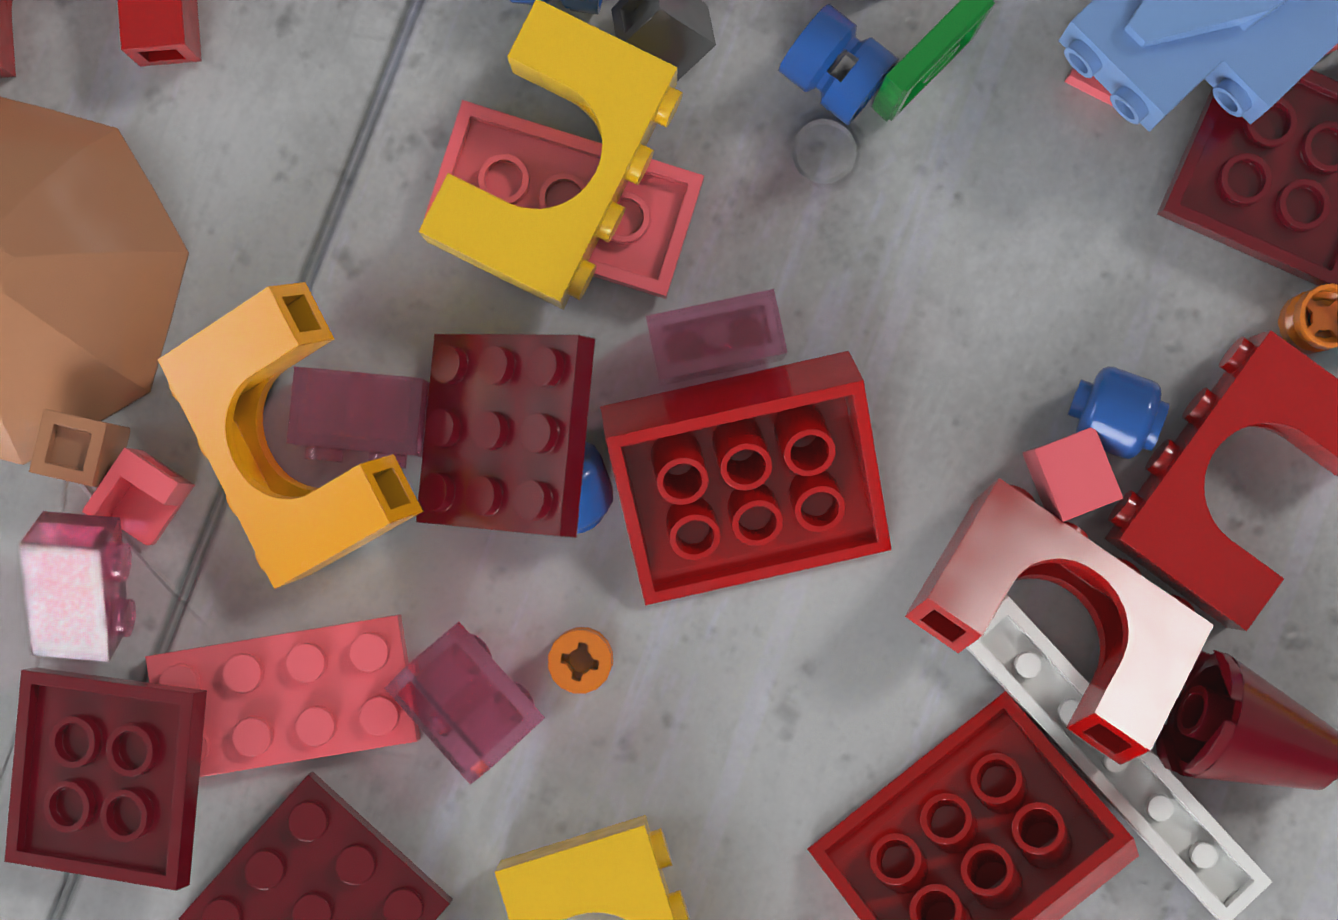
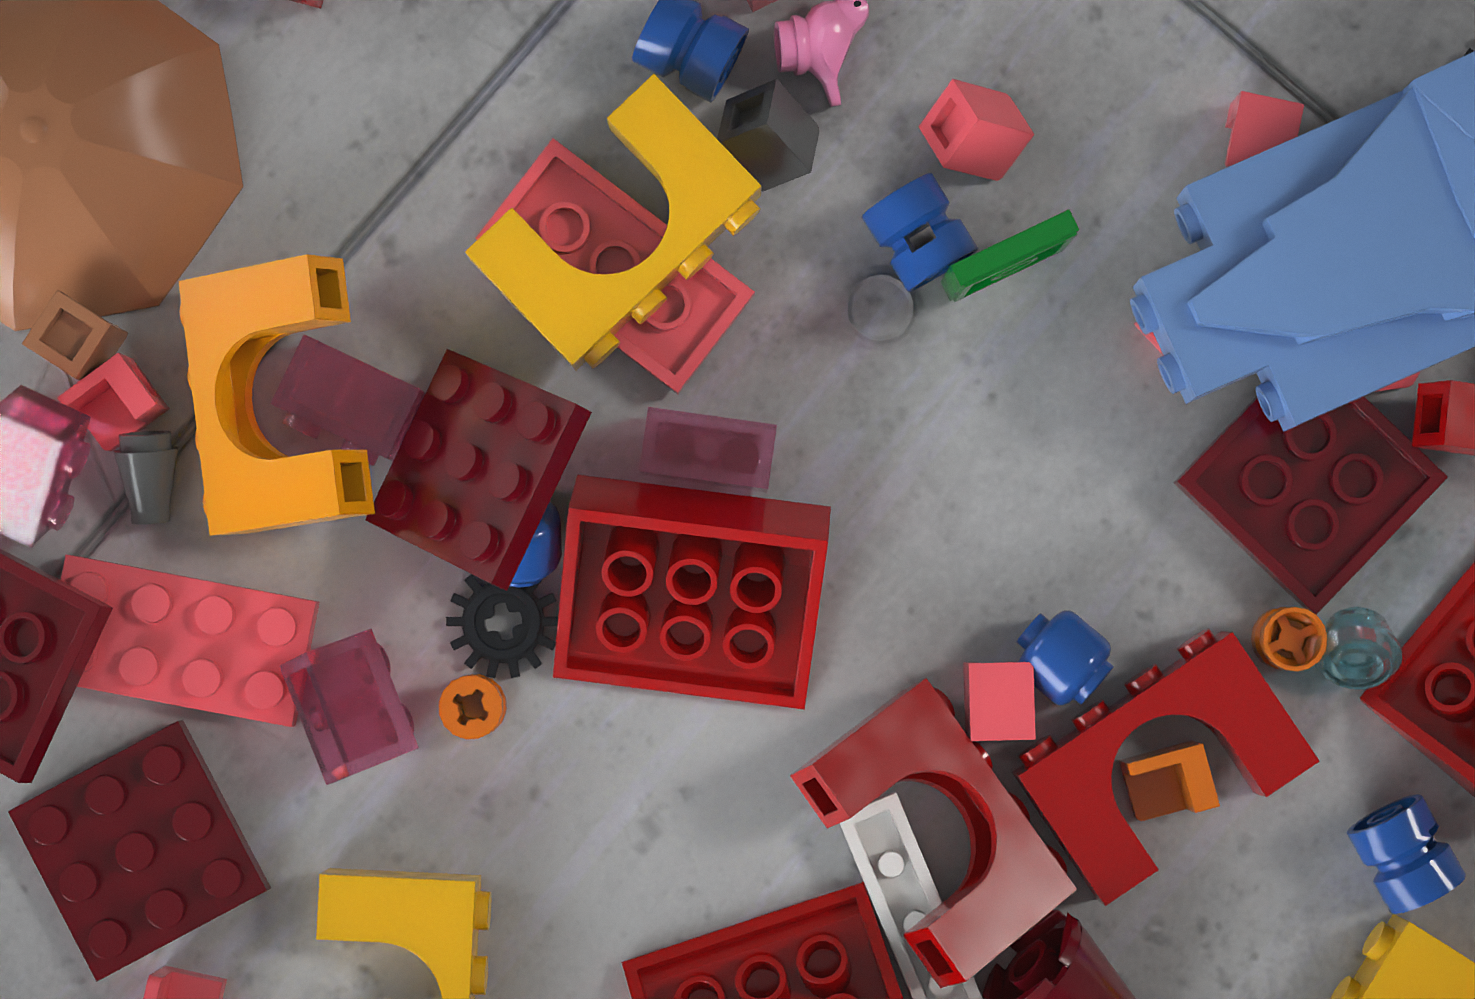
camera: 20 degrees right, 0 degrees up
(195, 553) = (147, 473): none -> dark grey cone
(575, 596) = (490, 644): none -> black gear
(1259, 491) = (1169, 781): none -> orange panel

